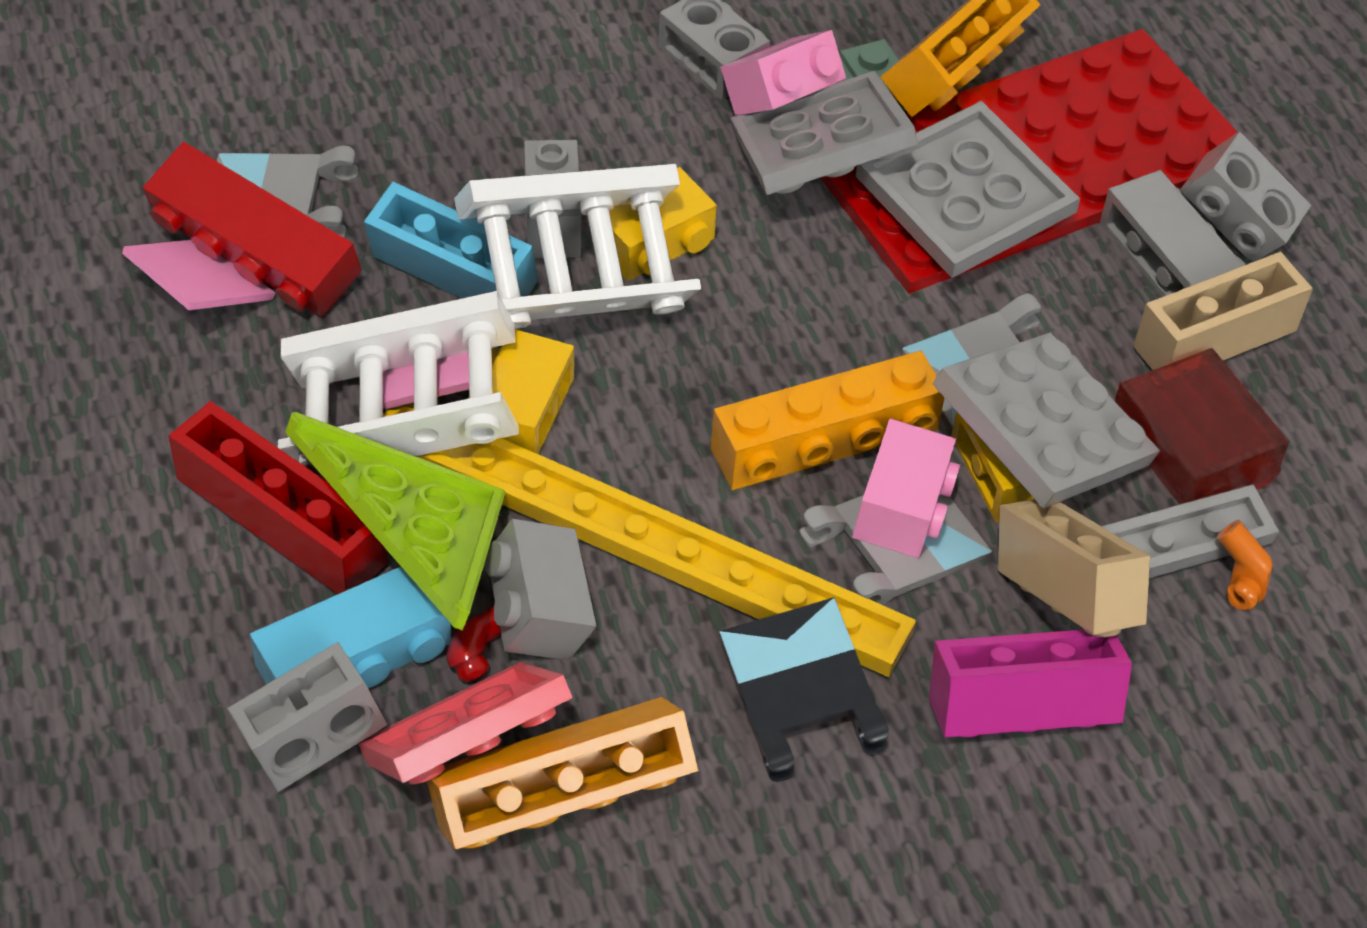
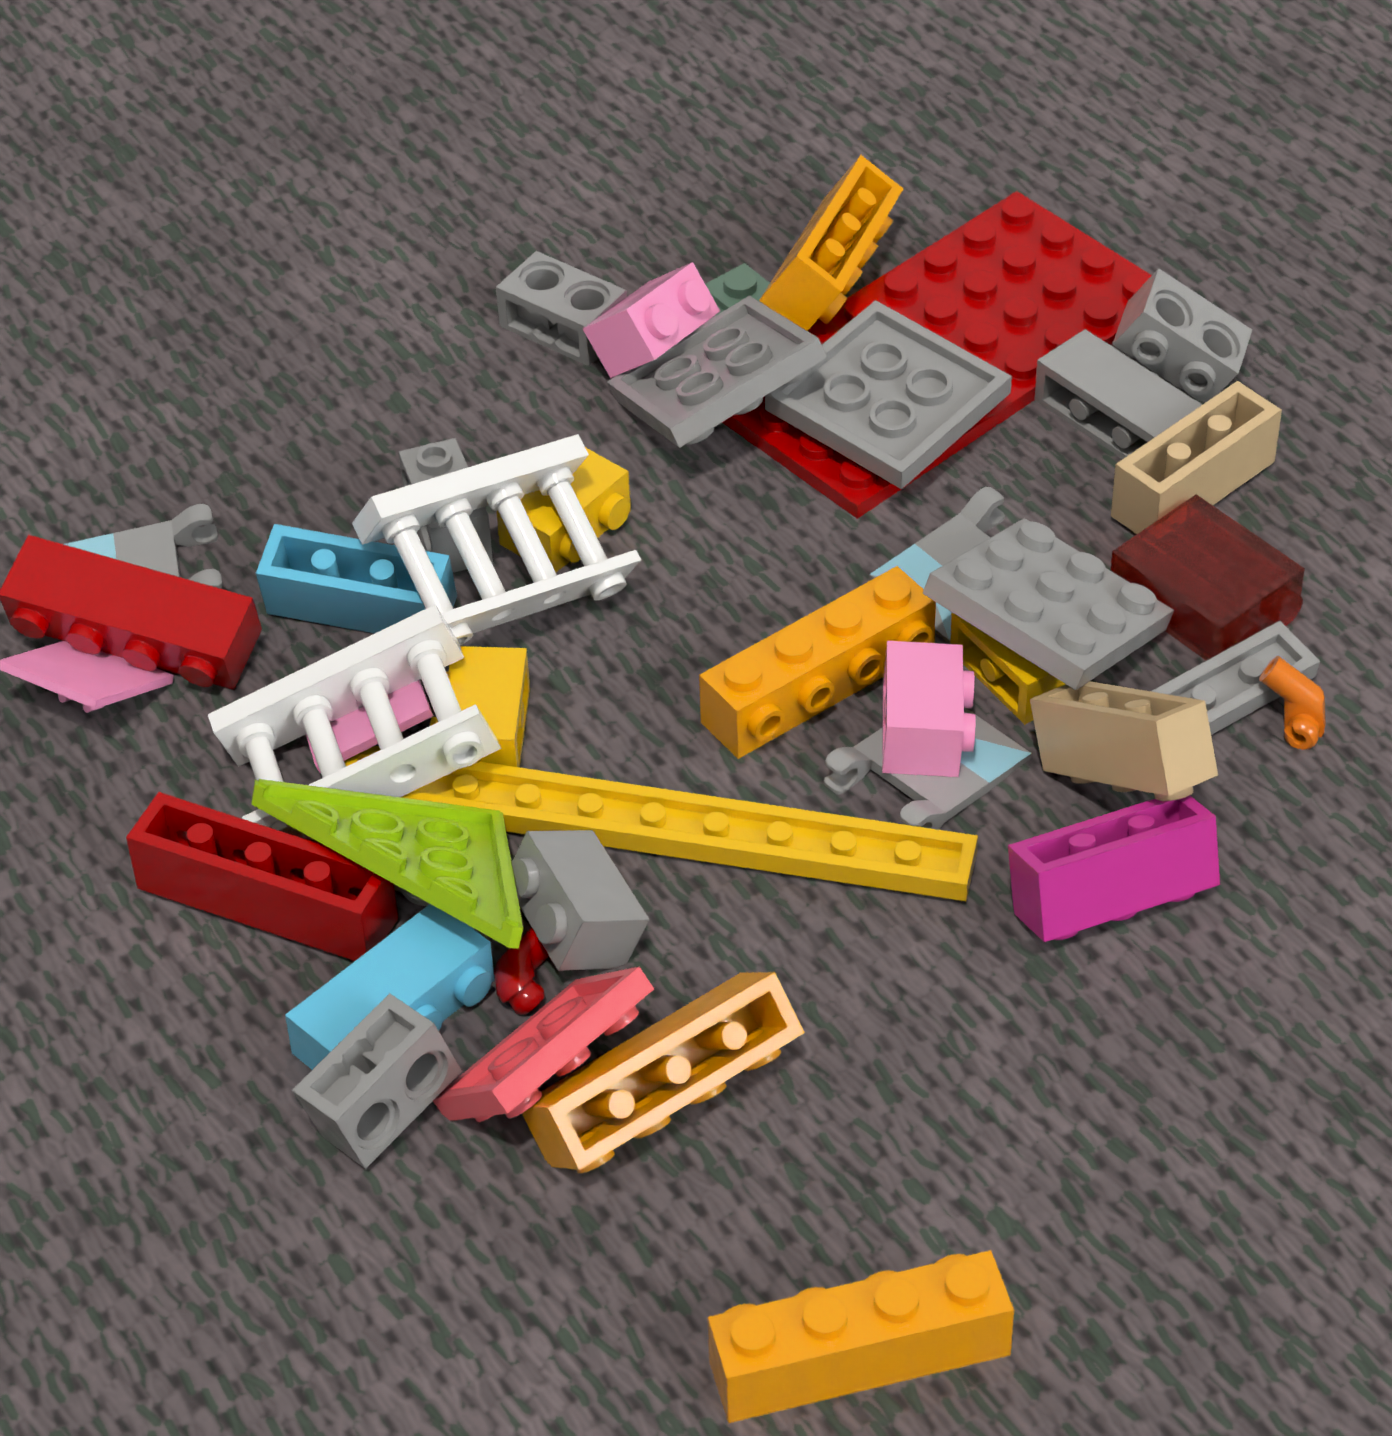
camera: 10 degrees left, 5 degrees down
(799, 674) = (875, 917): black flag -> none

